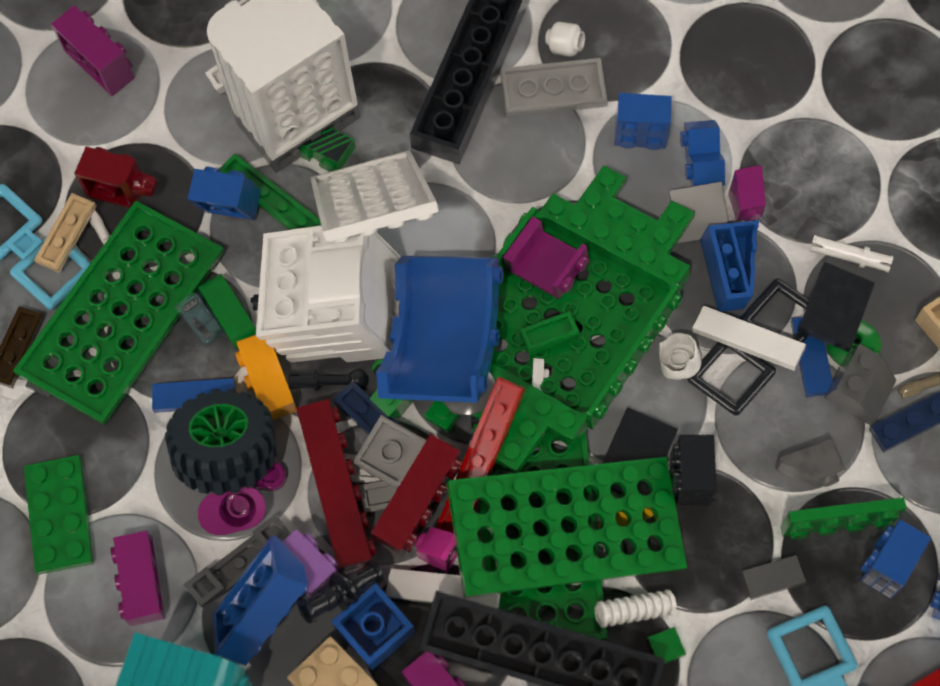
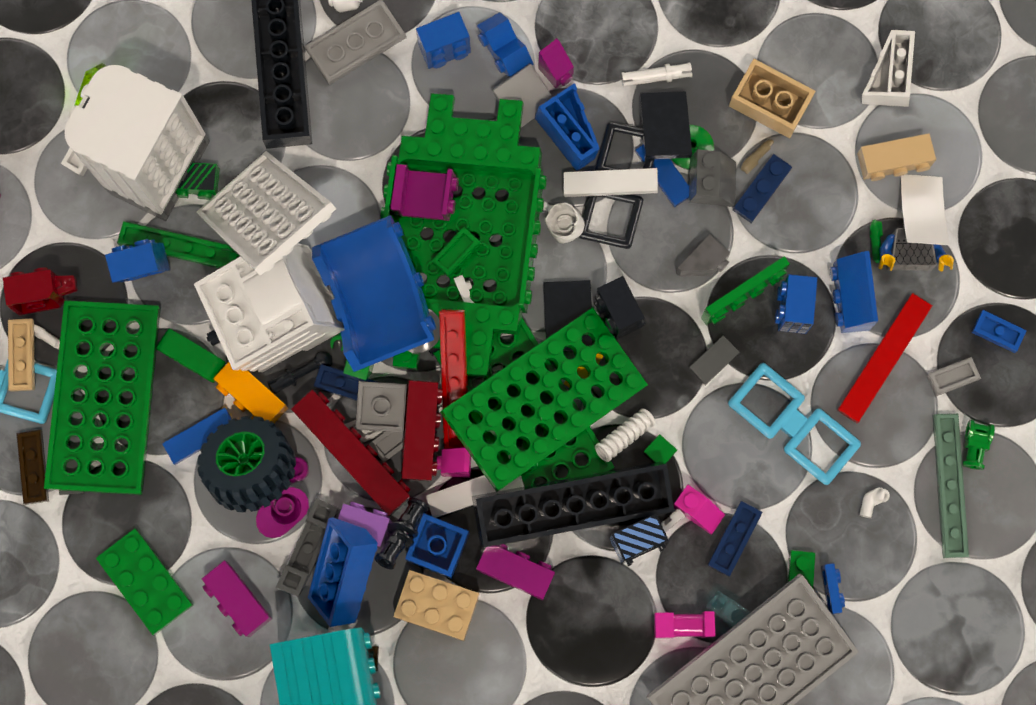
camera: 30 degrees left, 10 degrees up
(198, 318) = (170, 373): clear light blue leg -> none

